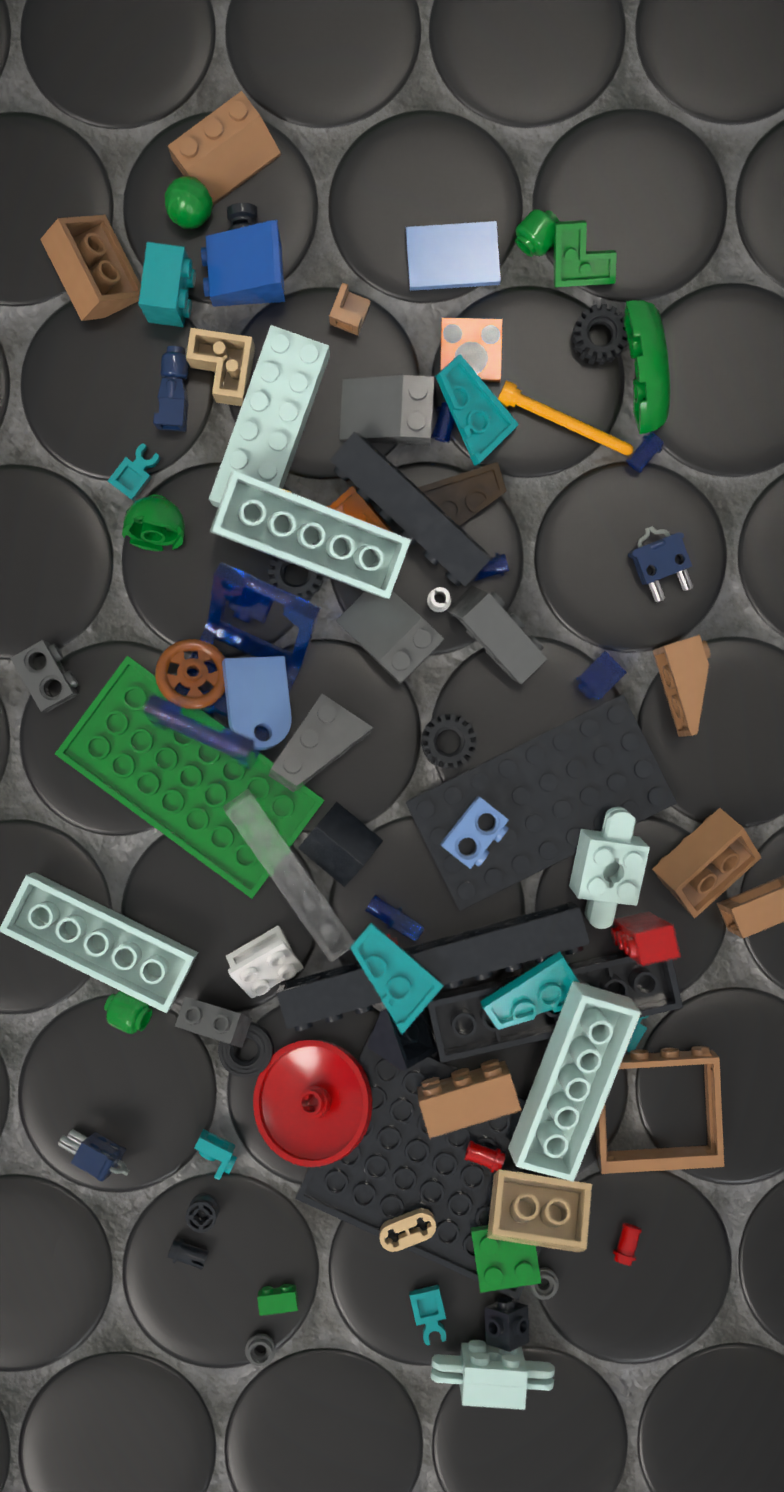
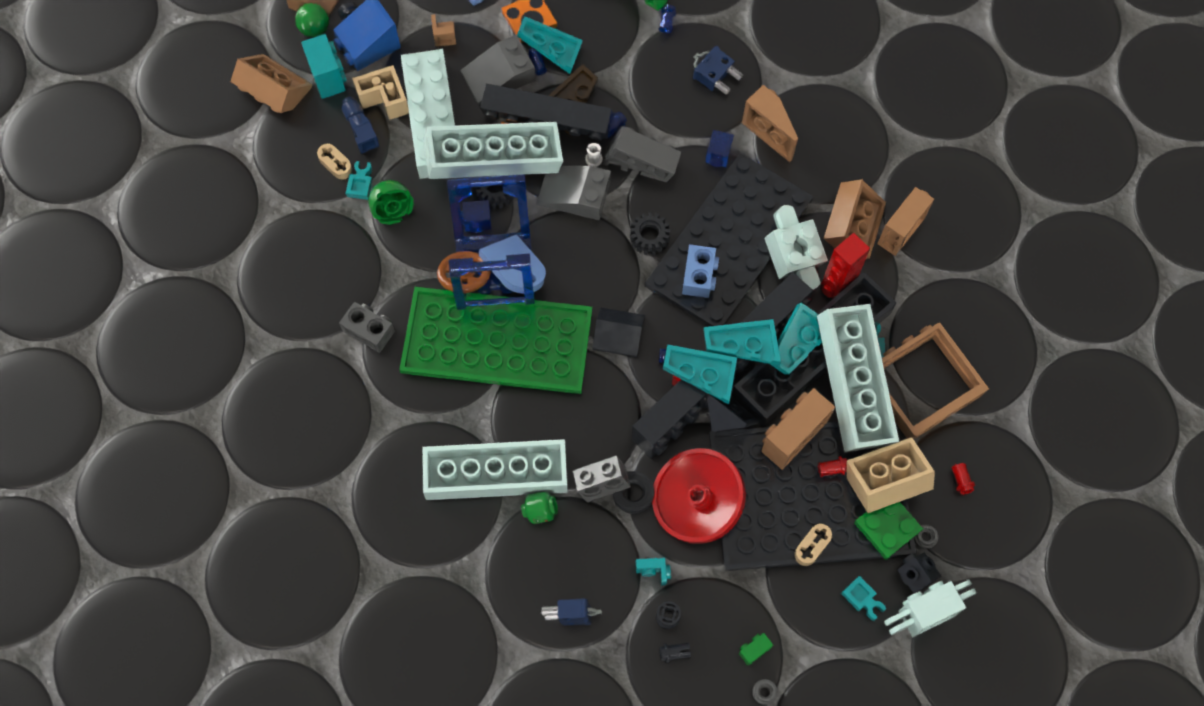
camera: 30 degrees left, 20 degrees down
(111, 427) = (338, 158): none -> tan beam
(263, 963) = (613, 427): white bracket -> none
(289, 875) = (597, 356): clear brick -> none
(318, 742) = (568, 271): dark grey wedge -> none
(467, 968) = (744, 340): none -> teal wing
(512, 396) = (569, 27): light orange piece -> none

